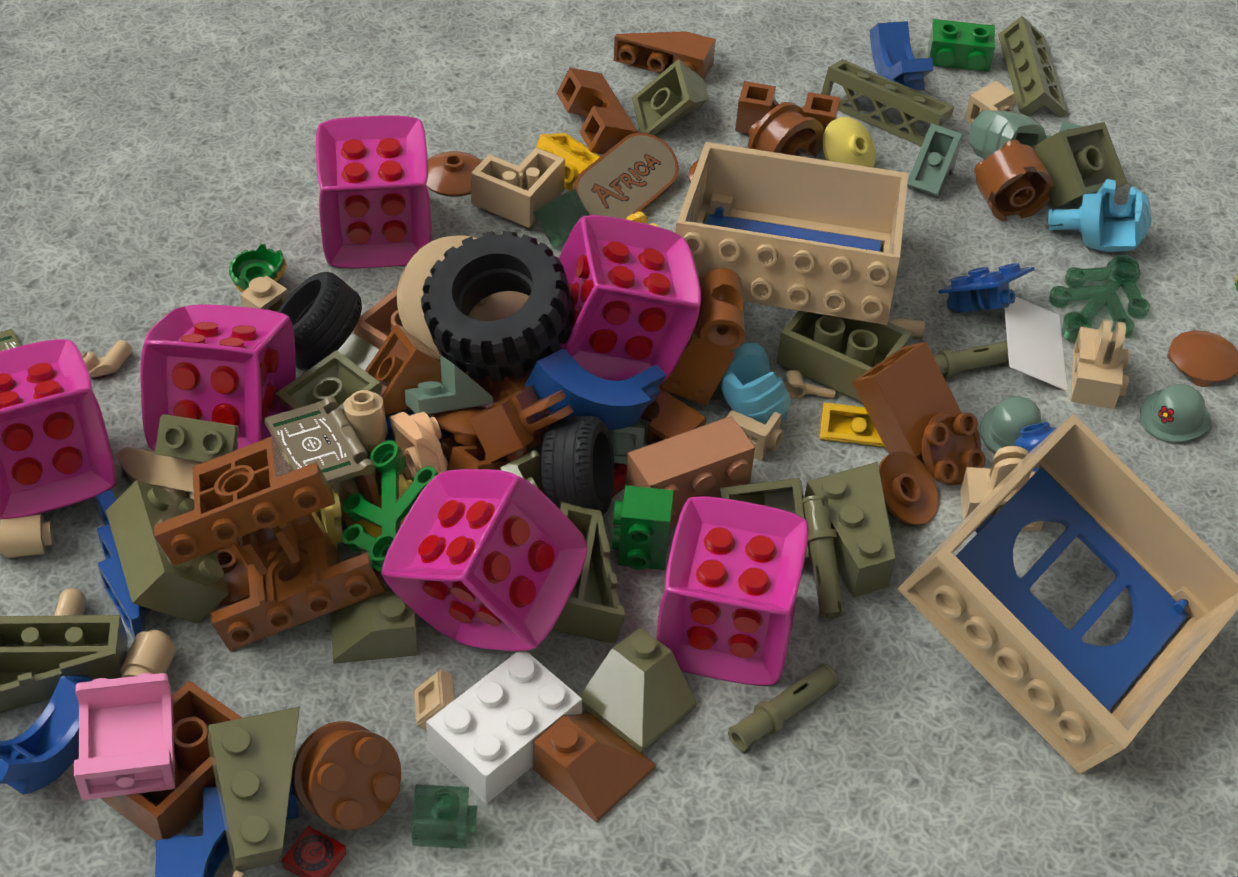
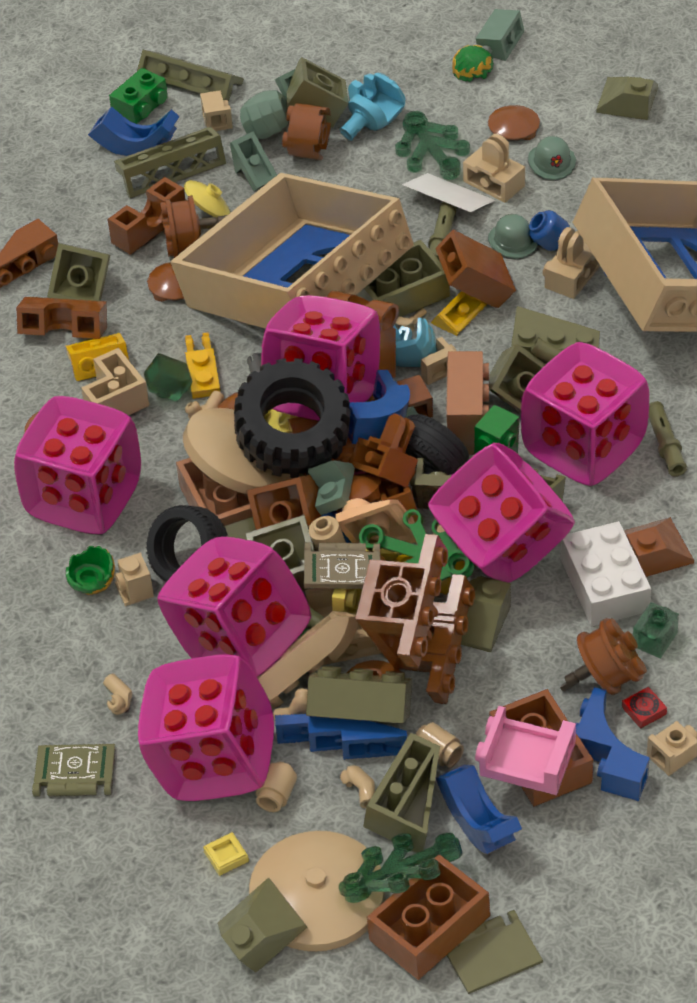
camera: 55 degrees left, 0 degrees up
(195, 438) = (297, 630): olive bracket -> none
(253, 781) = (603, 696): olive wedge -> none
(433, 696) = (562, 603): tan tile -> none
(627, 176) = (145, 327): dark tan tile -> none
(639, 691) = (614, 498): olive slope -> none
(908, 488) = (535, 303): dark orange dish -> none
(951, 446) = (519, 269): dark orange dish -> none
(983, 288) = (395, 180): blue hinge -> none

